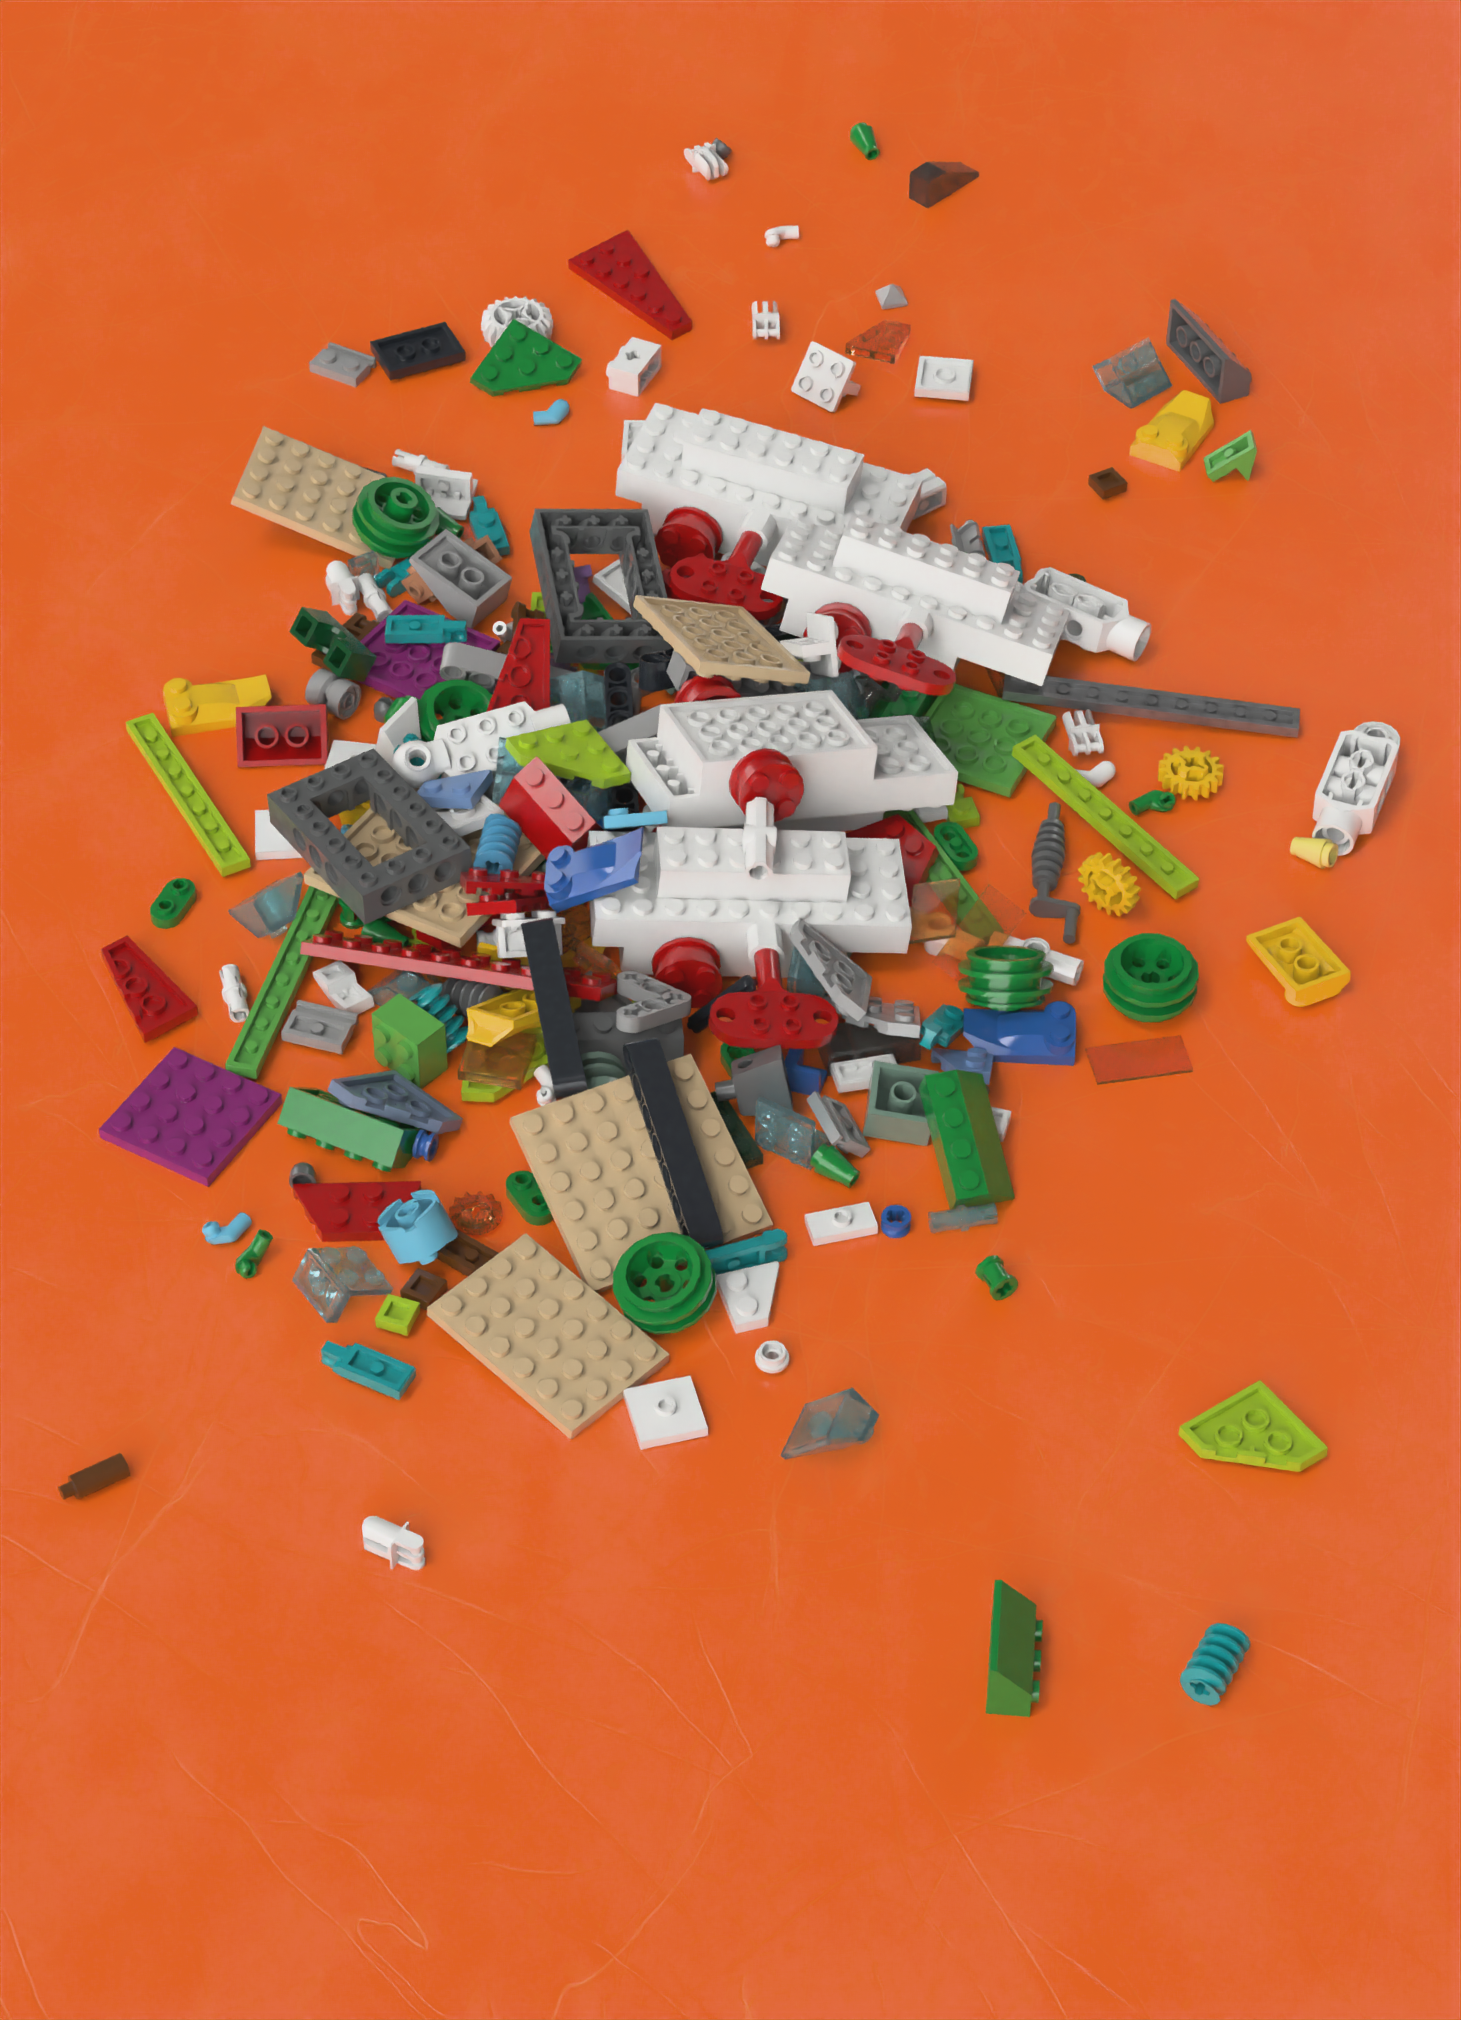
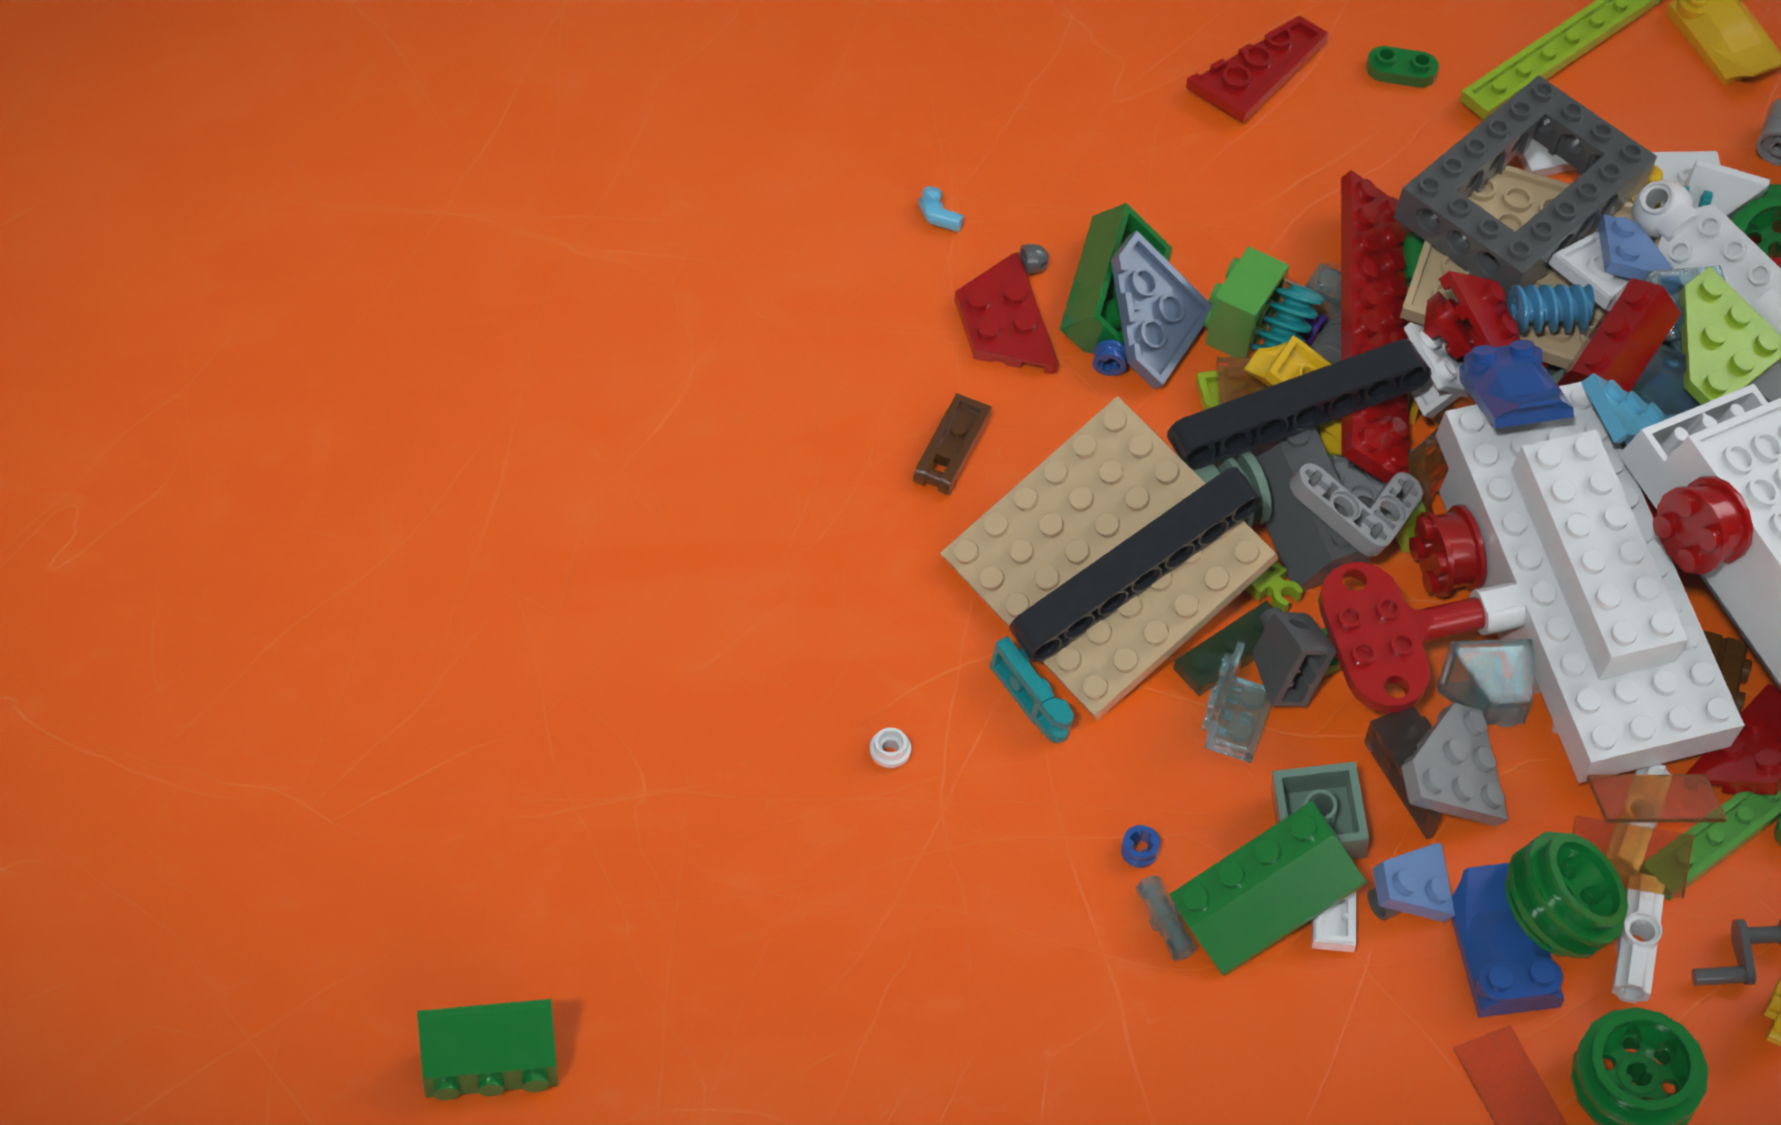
camera: 75 degrees right, 10 degrees up
(95, 1477) = (579, 174): reddish brown cylinder -> none
(190, 1116) = (1093, 147): magenta plate -> none
(234, 993) = (1264, 153): white pin -> none
(248, 1261) = (905, 238): green arm -> none
(270, 907) = (1412, 144): clear light blue slope -> none
(280, 985) = (1273, 179): bright green plate -> none
(282, 735) = (1700, 100): red slope -> none
(319, 1027) = (1257, 224): light grey plate -> none
(333, 1275) = (897, 322): clear light blue bracket -> none
(342, 989) = (1320, 244): white slope -> none
(369, 1368) = (775, 371): teal hinge -> none
(393, 1542) = (542, 434): white arm -> none
(397, 1314) = (857, 380): lime plate -> none
(417, 1228) = (968, 363): medium azure brick -> none
(424, 1288) = (899, 397): reddish brown plate -> none
(486, 1219) = (1016, 432): clear orange gear -> none
(548, 1335) = (862, 522): tan plate -> none
(665, 1412) = (785, 656): white plate -> none
(674, 1304) = (937, 614): green wheel -> none
(700, 1019) = (1413, 593): black axle -> none
(749, 1295) = (981, 711): white wing -> none
(759, 840) = (1605, 532): white piece -> none
(801, 1077) = (1344, 713): blue panel -> none
(831, 1425) = (789, 821): clear light blue slope -> none
(833, 1165) = (1206, 762): green cone -> none
(838, 974) = (1482, 689): light grey plate -> none
(838, 1124) = (1264, 749): light grey plate -> none
(841, 1223) = (1120, 789): white plate -> none
(856, 1073) = (1378, 782): white plate -> none
(942, 1027) = (1461, 838): teal hinge -> none
(996, 1277) = (1074, 966): green bush -> none

